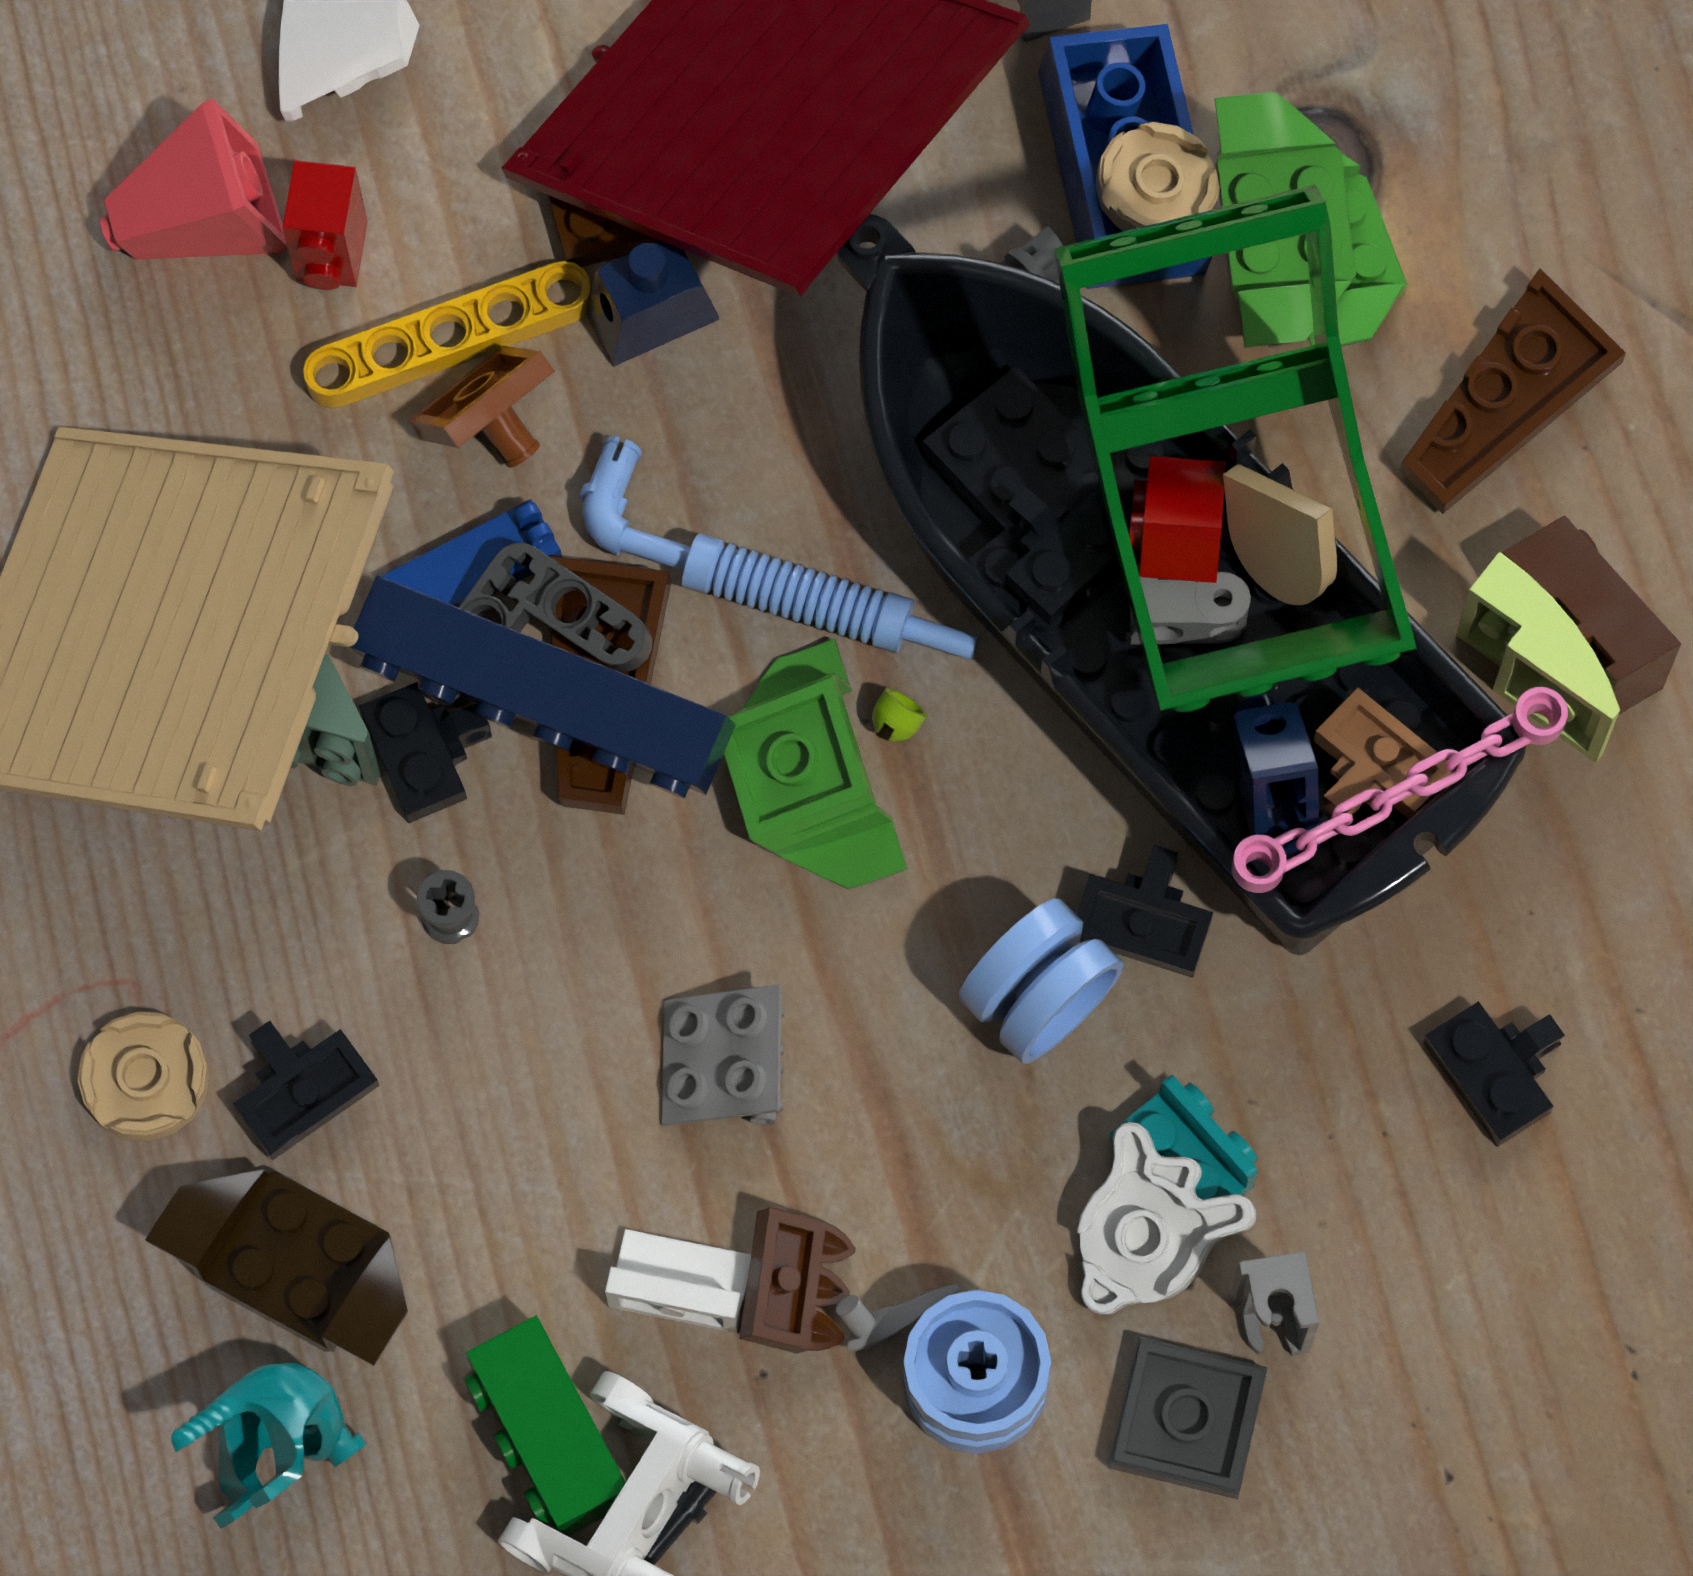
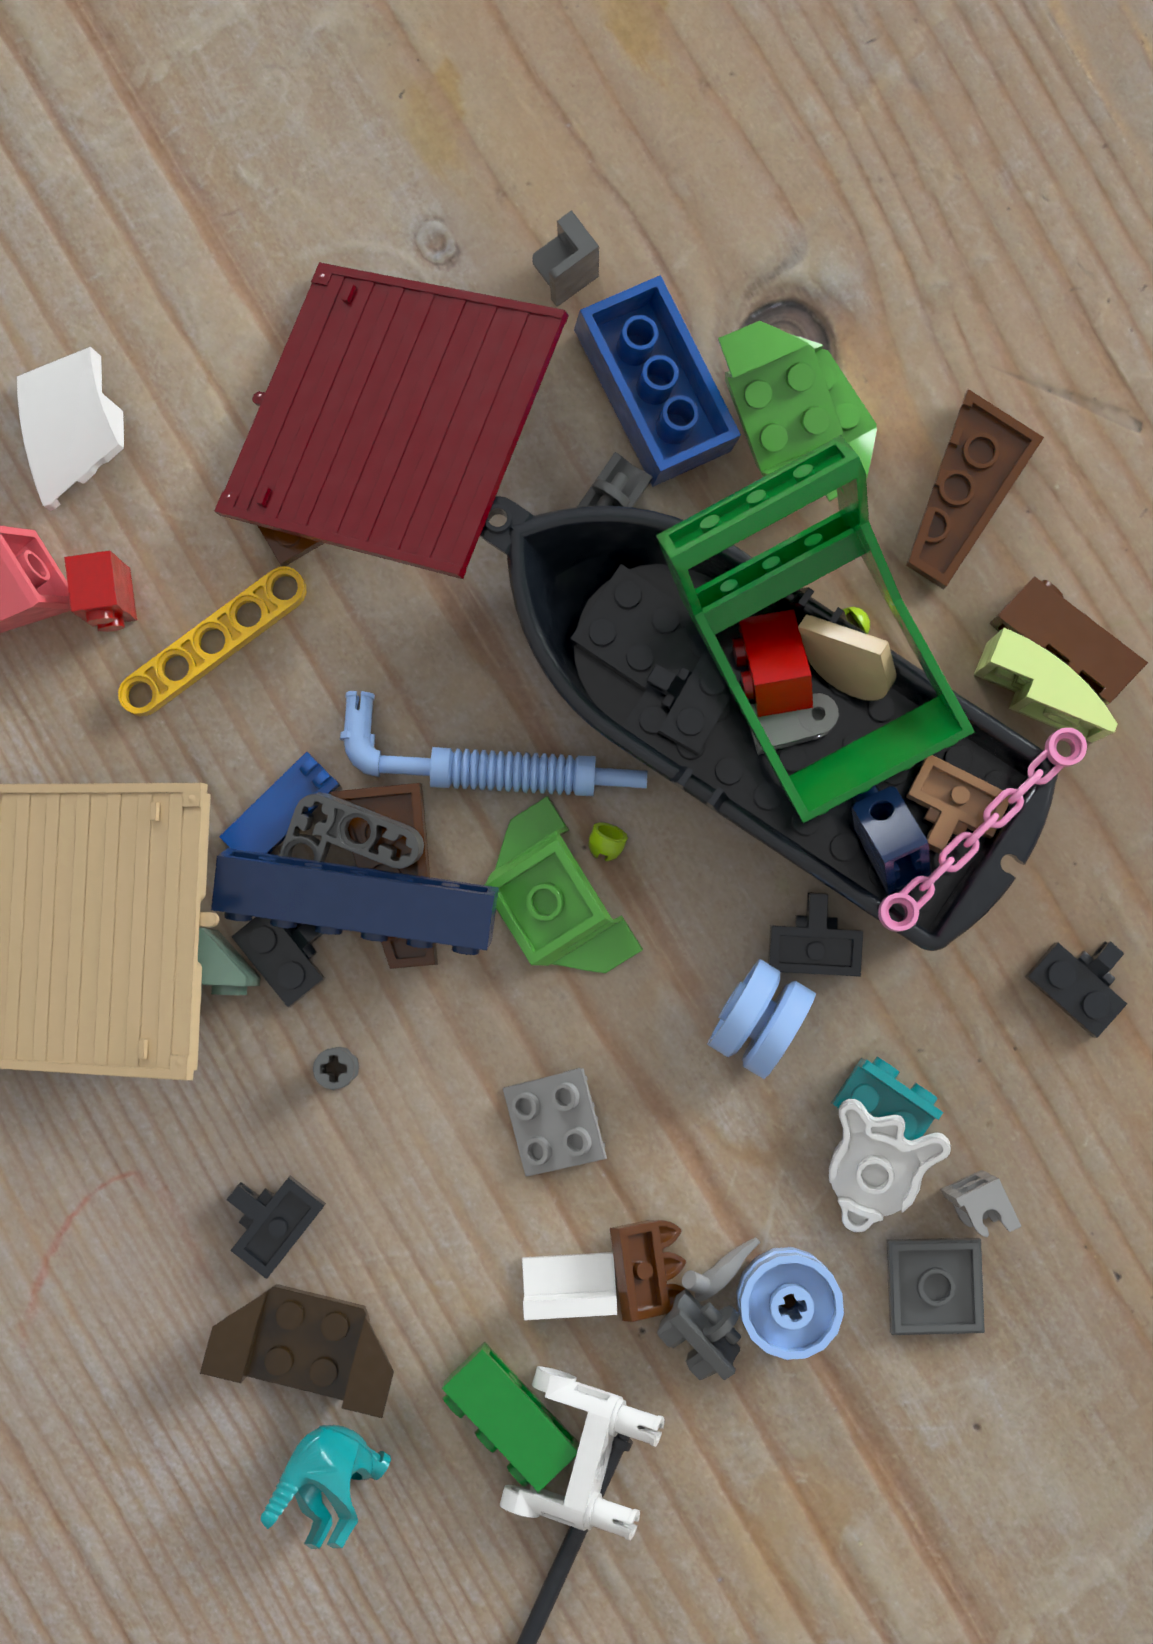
camera: 10 degrees left, 15 degrees up
(143, 1076) = (162, 1240): tan tile -> none
(484, 403) = (255, 692): dark orange tile -> none
(647, 301) = (347, 585): dark blue torso -> none
(854, 1382) = (707, 1331): none -> dark grey hips
(1155, 176) = (687, 403): tan tile -> none

